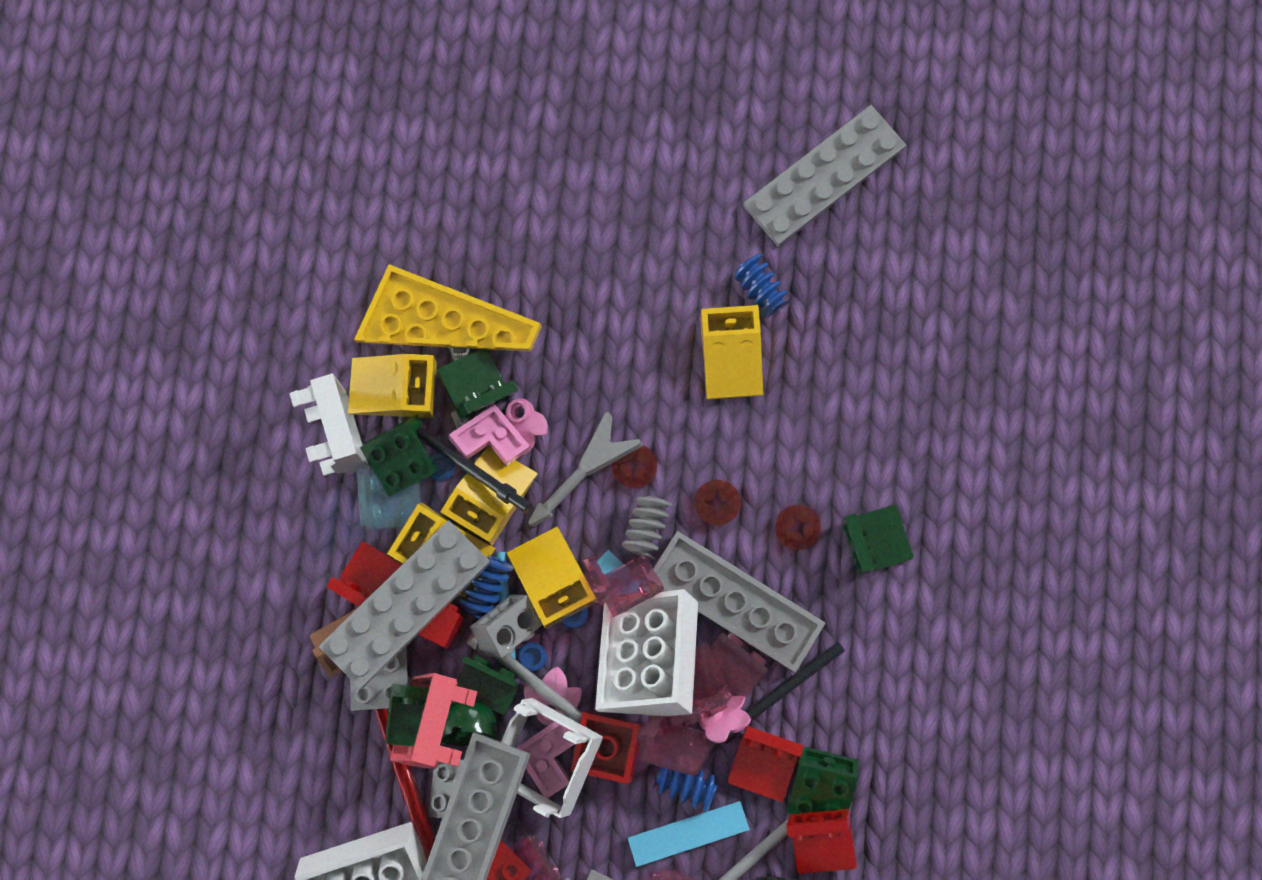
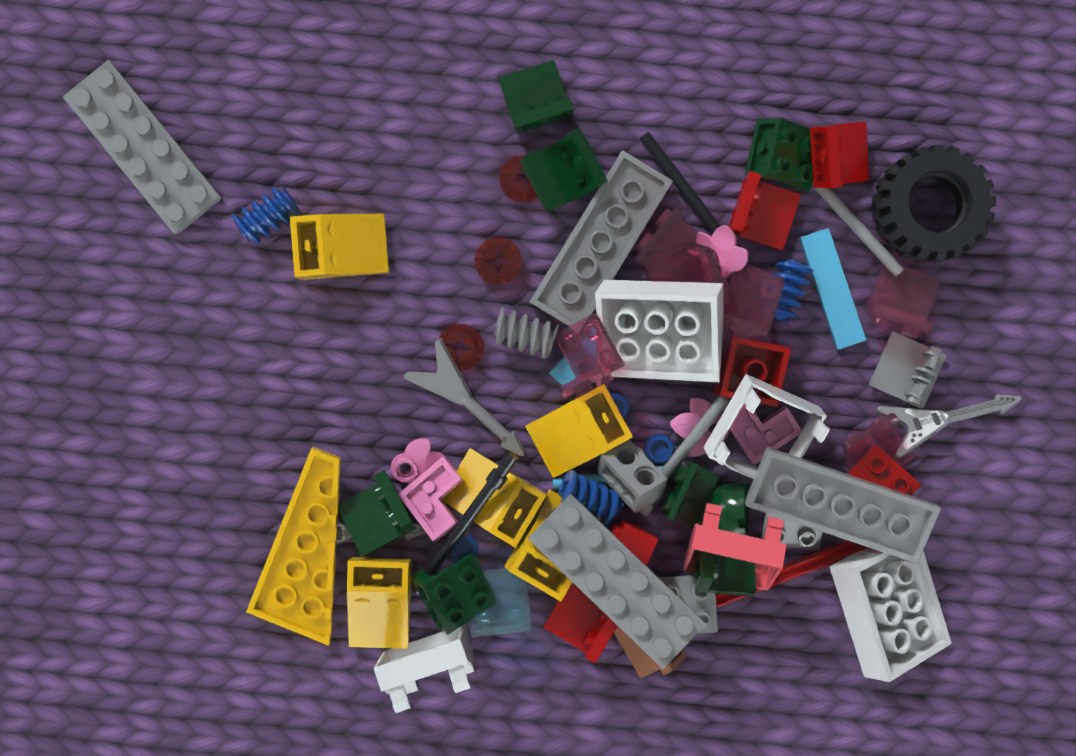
camera: 90 degrees left, 10 degrees up
(803, 564) = (563, 171): none -> dark green bracket

